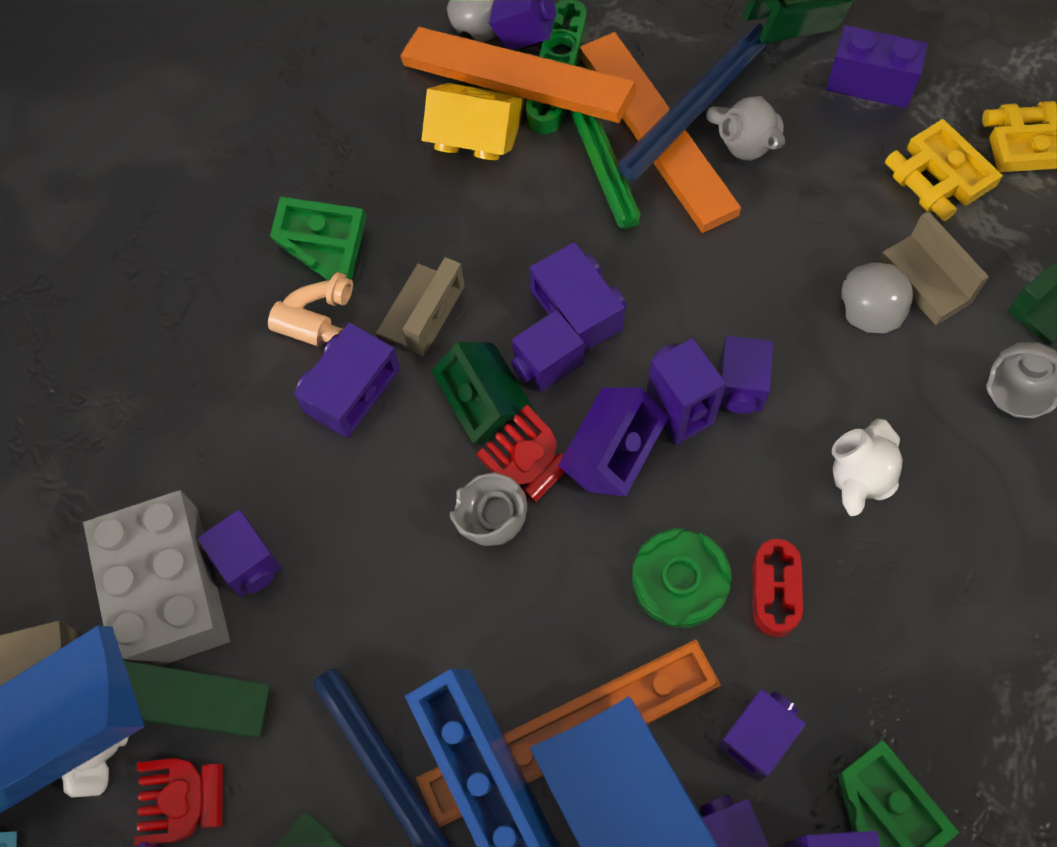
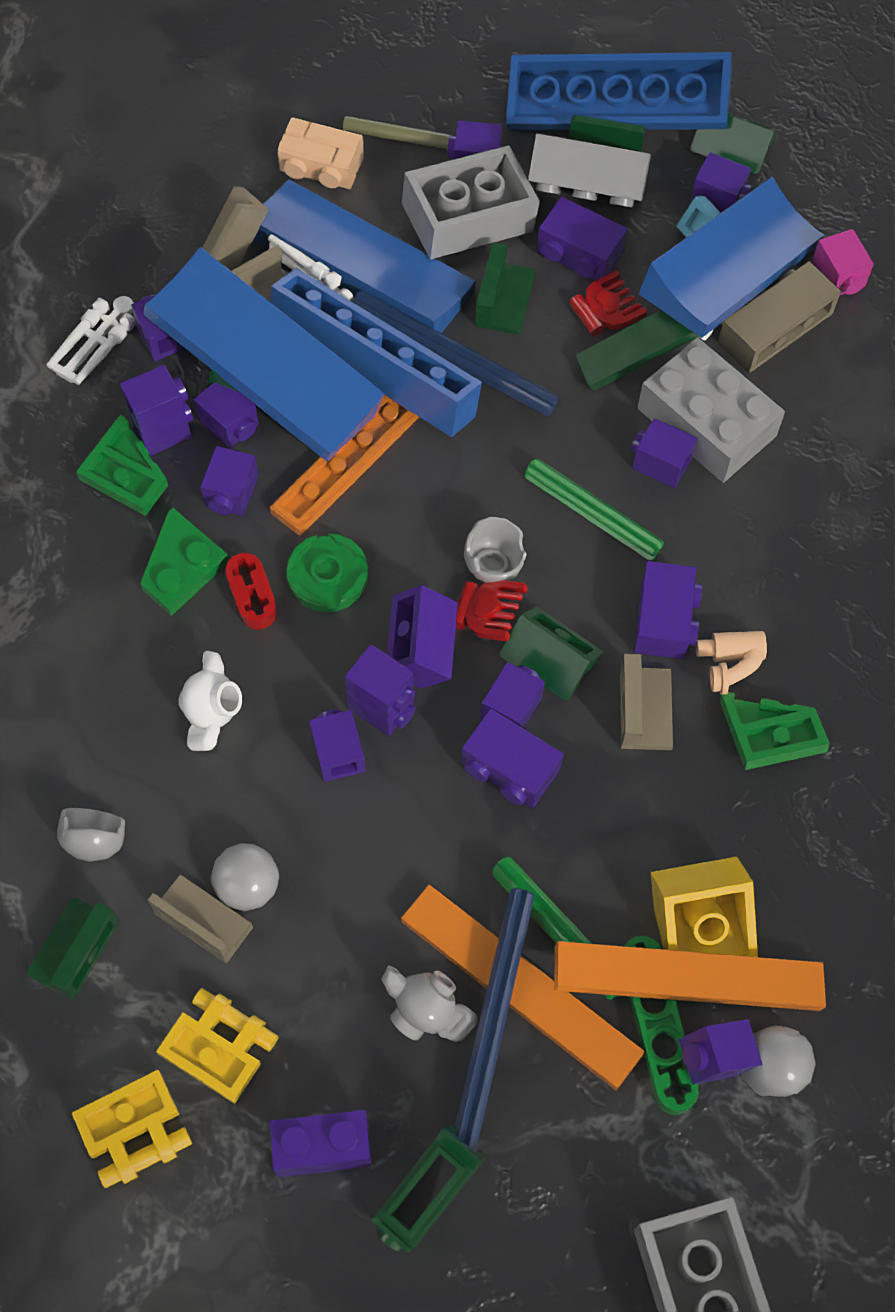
camera: 150 degrees right, 0 degrees up
(355, 531) = (594, 509): none -> green axle
(849, 660) = (180, 563): none -> green wing

